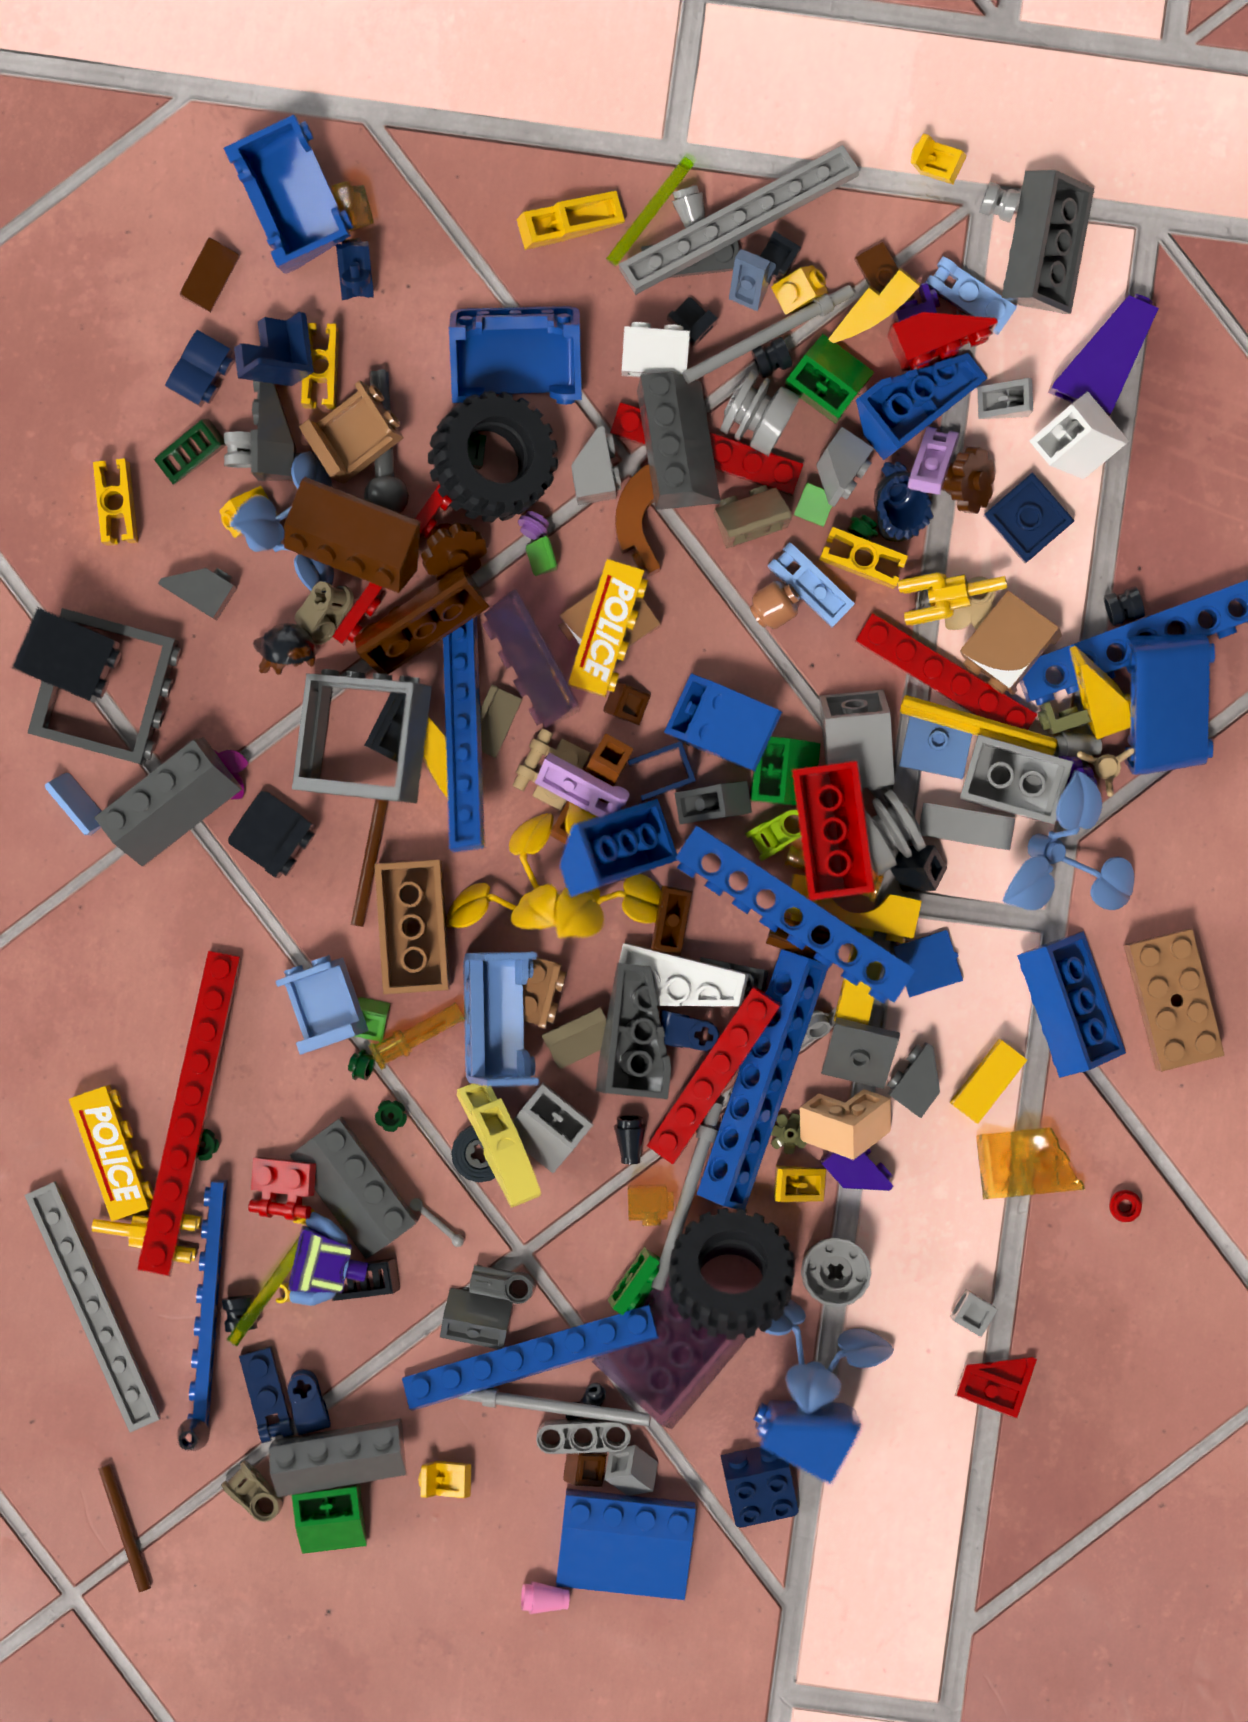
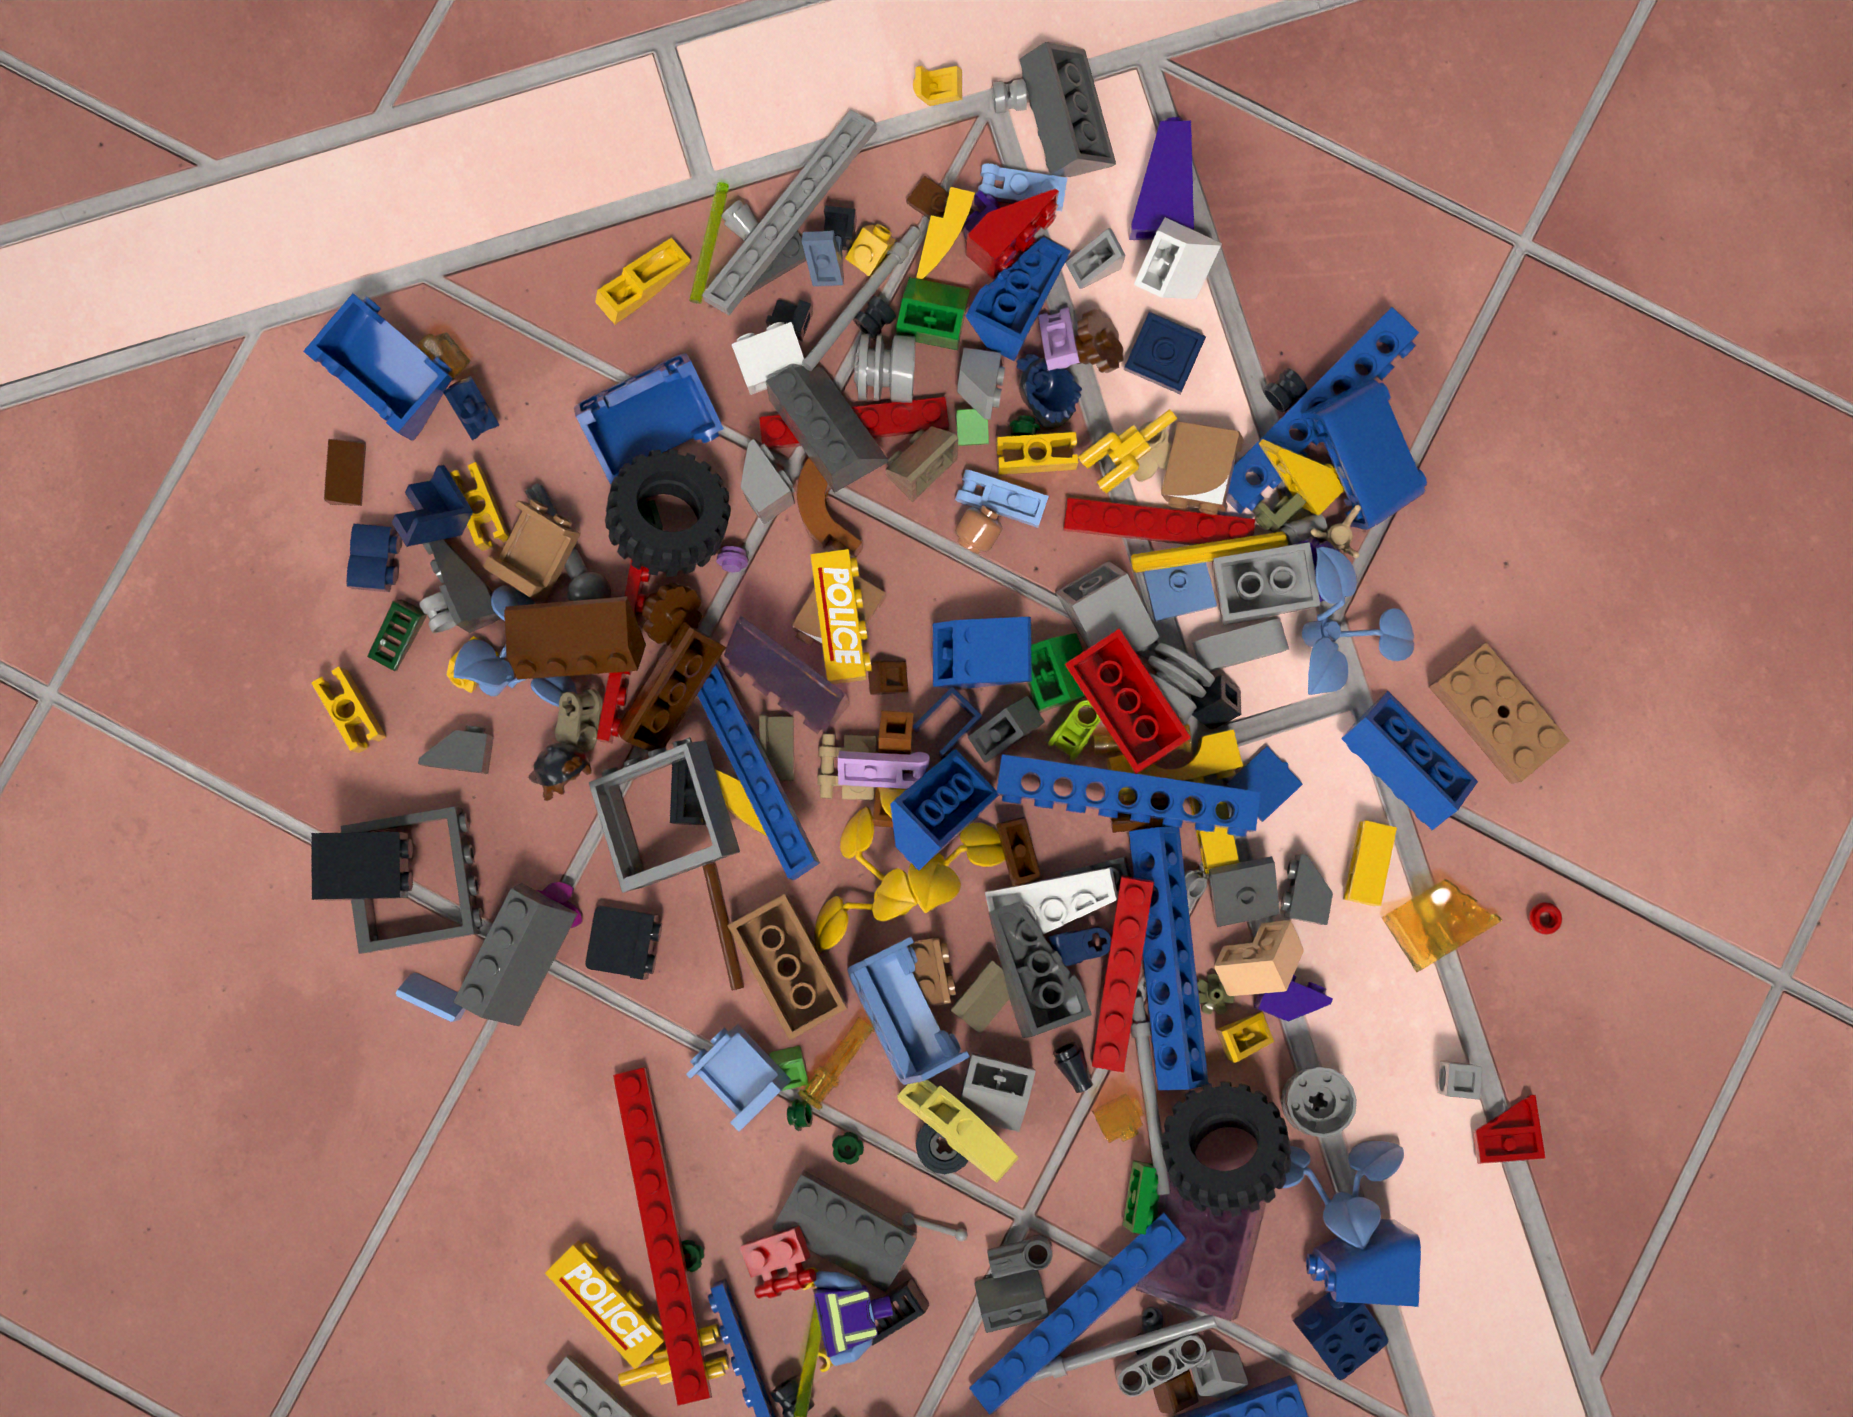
camera: 20 degrees left, 5 degrees down
(541, 556) = (752, 583): bright green slope -> none

